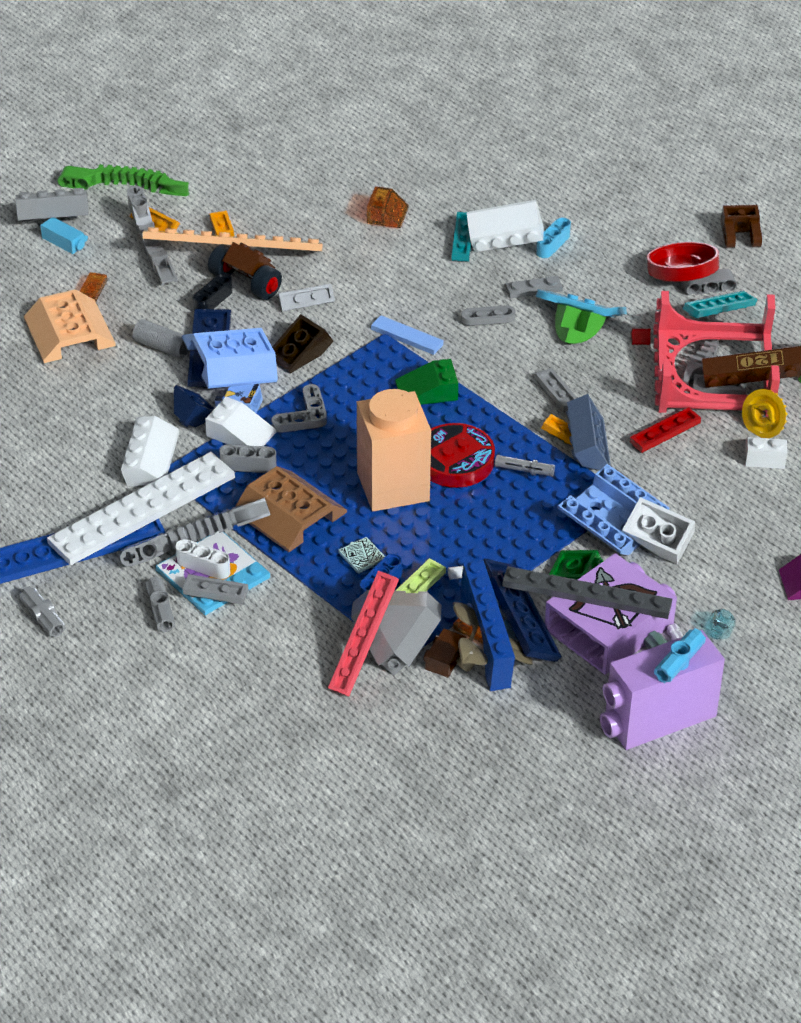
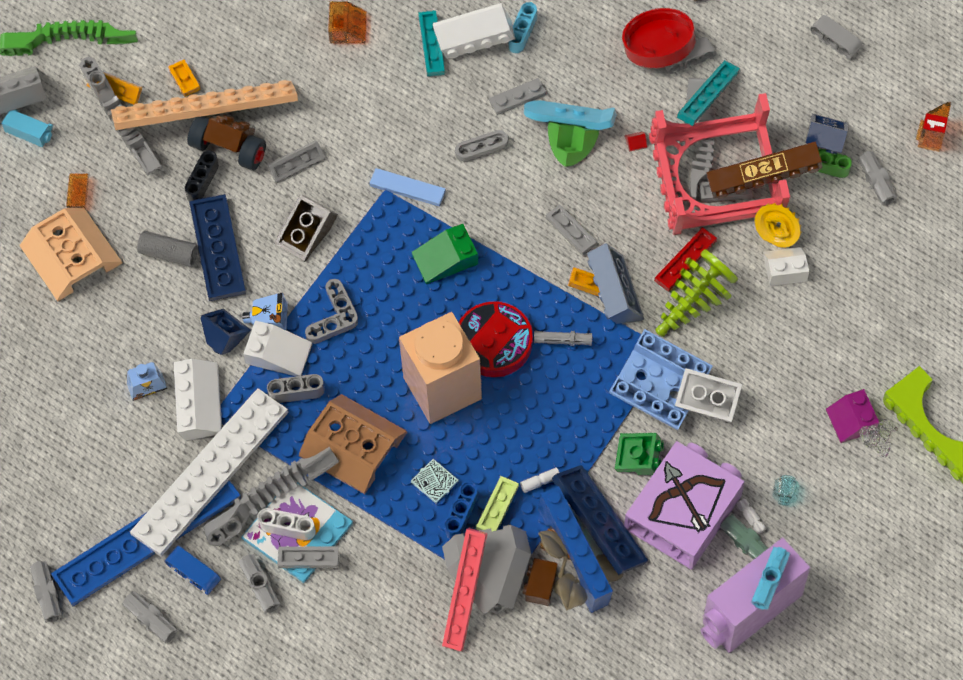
camera: 10 degrees left, 20 degrees up
(98, 581) = (193, 569): none -> blue beam
(104, 428) = (145, 380): none -> light blue torso
(234, 357) = (254, 267): light blue slope -> none
(587, 592) = (661, 497): dark grey plate -> none
(671, 447) = (708, 278): none -> lime plant

